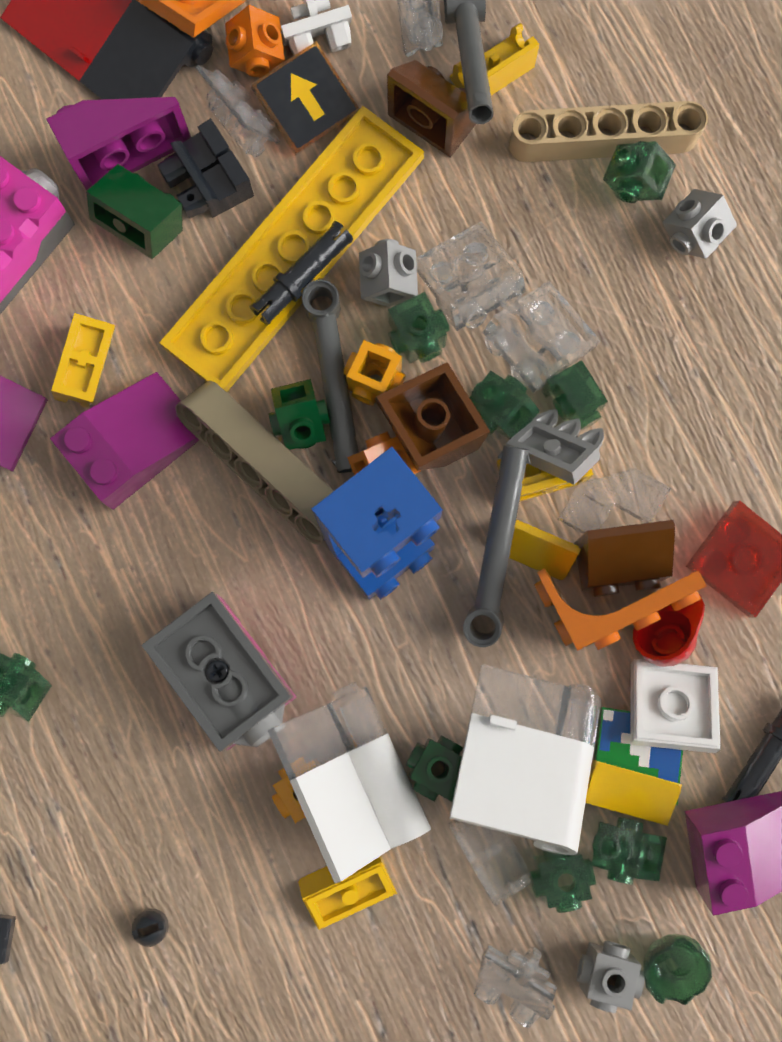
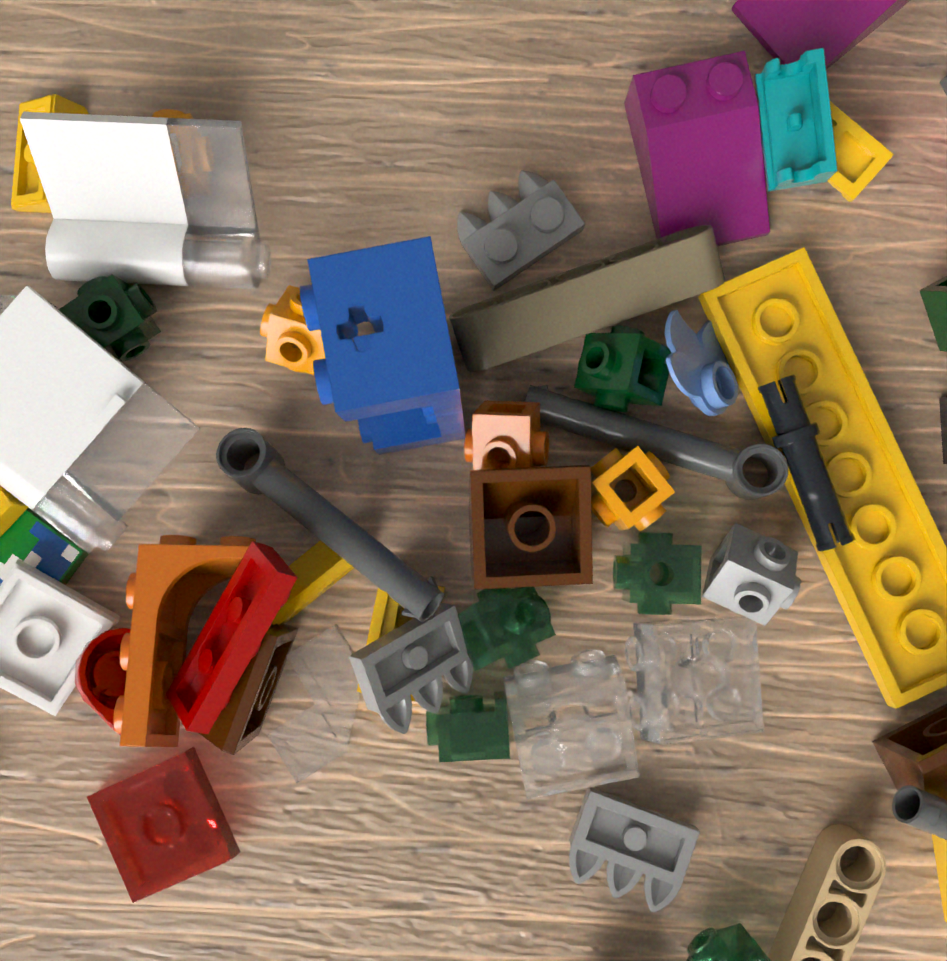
camera: 120 degrees right, 5 degrees up
(85, 380) = (796, 122): none -> teal hinge
(220, 674) = (348, 118): dark grey piece -> none
(237, 533) = (518, 231): none -> light grey plate
(271, 368) = (699, 366): none -> medium blue plate
(378, 632) = (288, 336): none -> light orange brick
(590, 265) = (634, 844): none -> light grey plate
(603, 559) = (230, 637): none -> red plate

